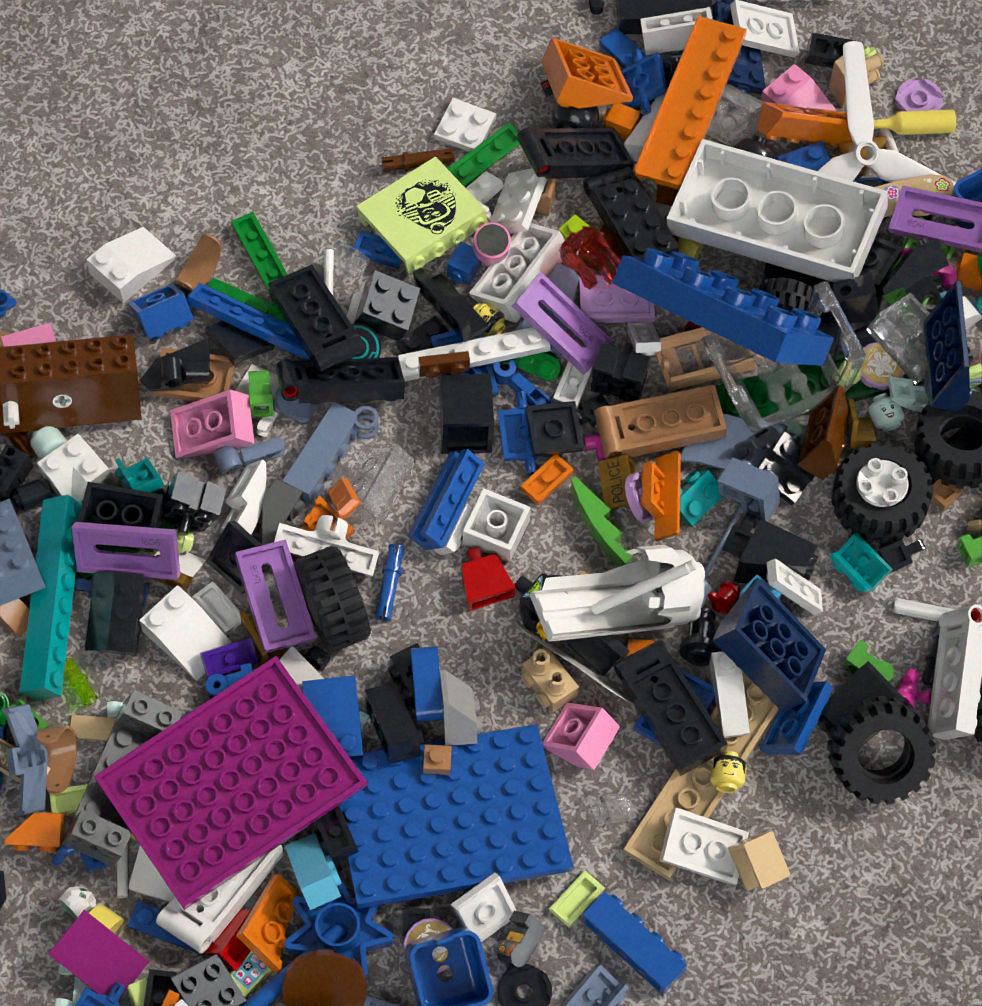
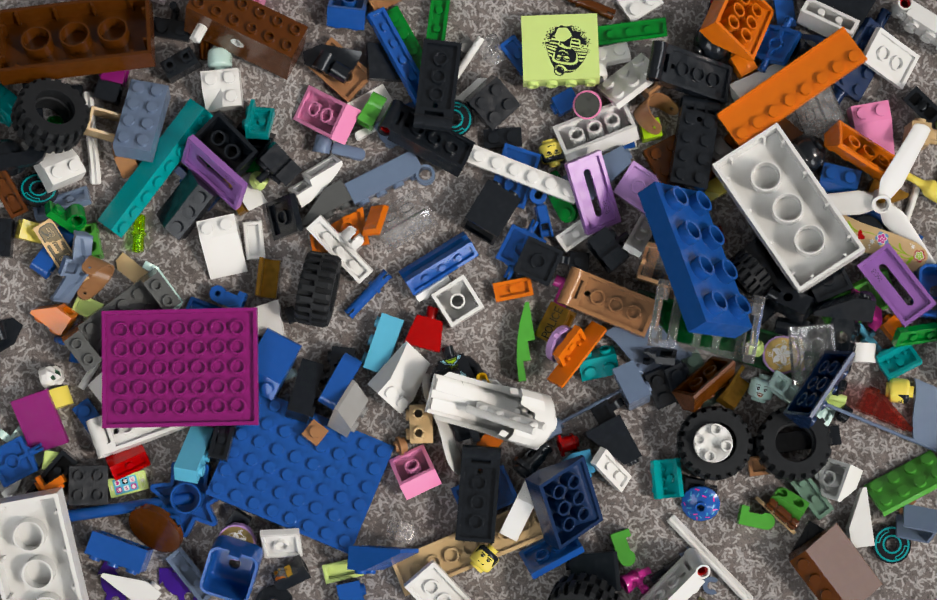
camera: 35 degrees right, 20 degrees up
(32, 494) = (187, 88): black brick -> none
(228, 657) = (237, 279): dark purple plate -> none
(267, 922) = (149, 465): orange wing -> none
(299, 623) = (268, 286): medium lavender piece -> none
(439, 364) = (488, 171): reddish brown plate -> none
(444, 622) = (382, 342): none -> medium azure brick
(450, 305) = (534, 129): black panel -> none
(491, 644) = (400, 377): none -> white slope
(543, 717) = (400, 445): none -> medium nougat plate
(565, 211) = (644, 116): none -> medium nougat piece
(592, 243) = (652, 146): clear red piece -> none
(610, 845) = (371, 558): none -> blue slope
(904, 565) = (700, 496): none -> blue dish

